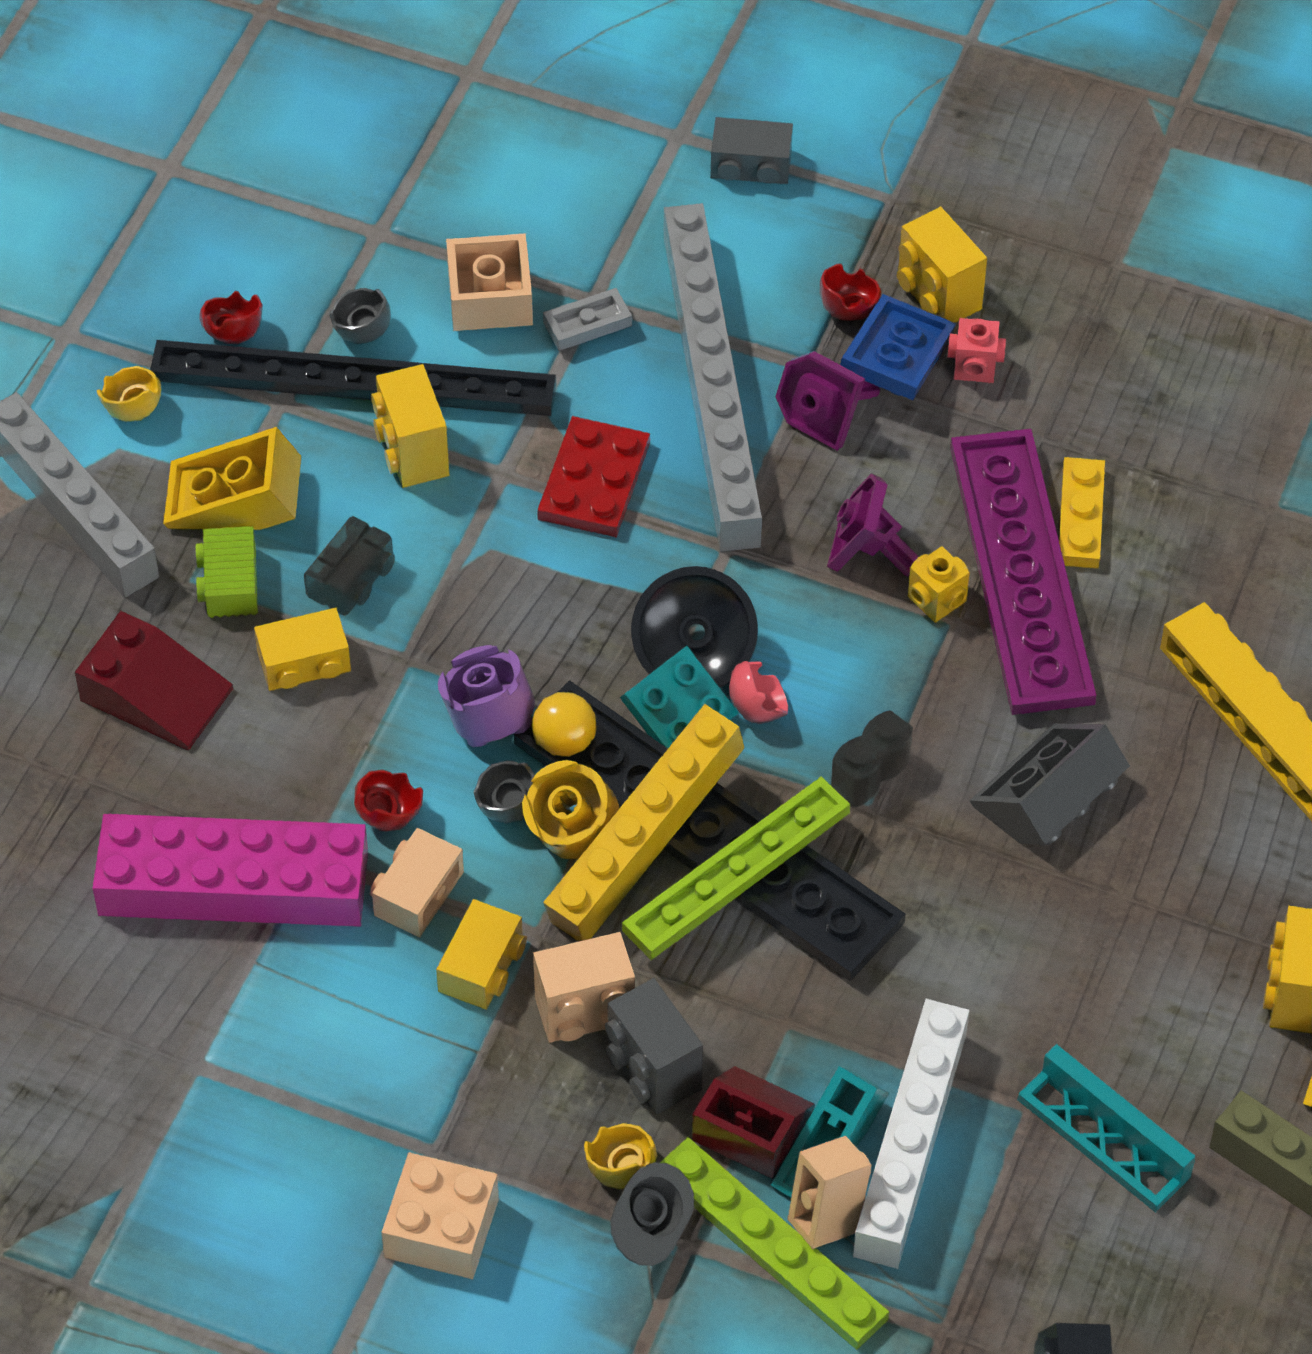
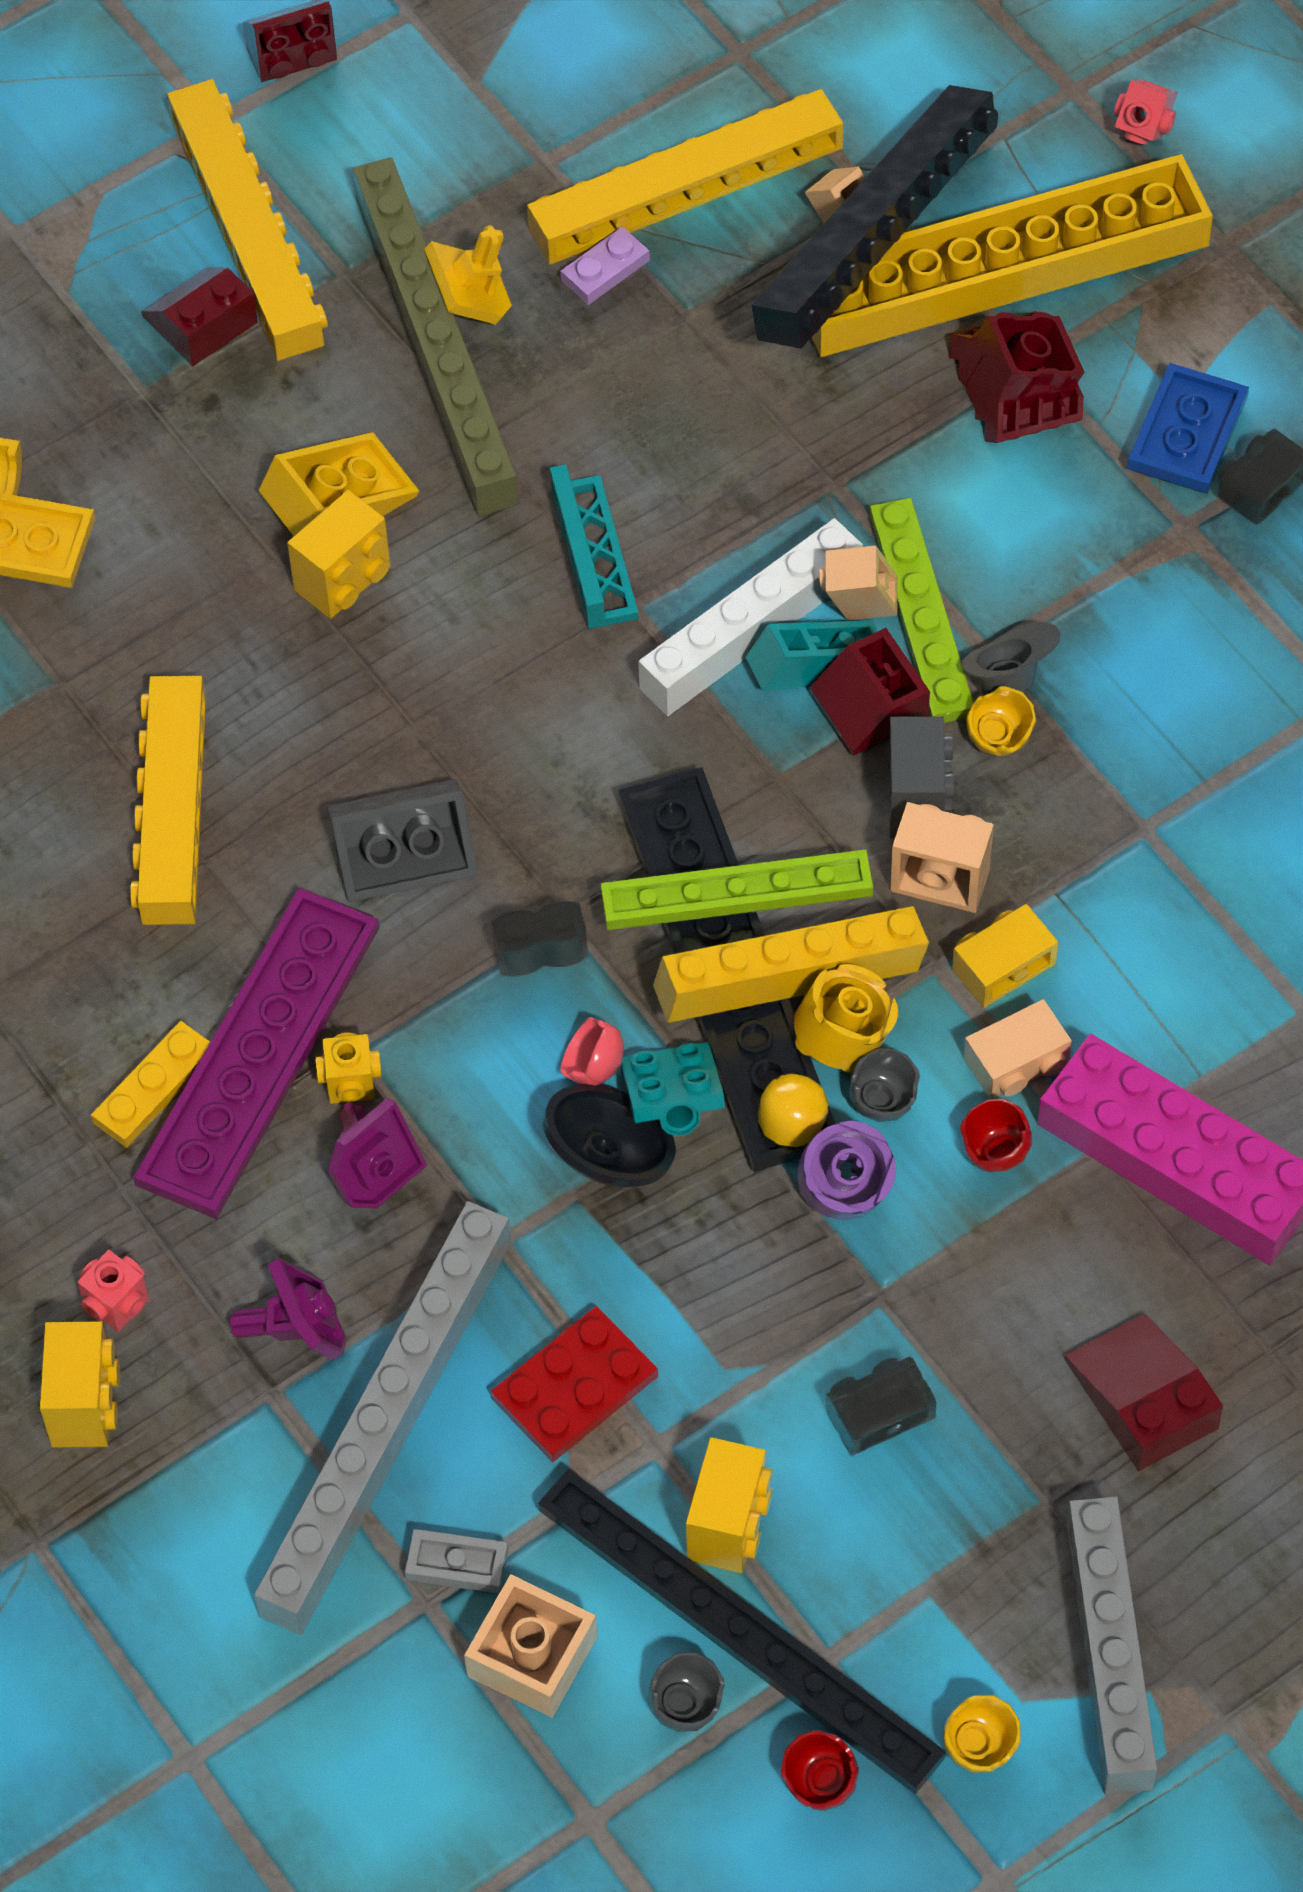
camera: 145 degrees left, 5 degrees up
(229, 571) = (1000, 1467): lime brick -> none
(235, 484) = (941, 1563): yellow slope -> none
(302, 649) = (980, 1339): yellow brick -> none
(440, 1215) = (1180, 753): light nougat brick -> none
(751, 150) = (141, 1666): dark grey brick -> none
(848, 295) = (180, 1427): red hair -> none
(898, 346) = (187, 1332): blue plate -> none

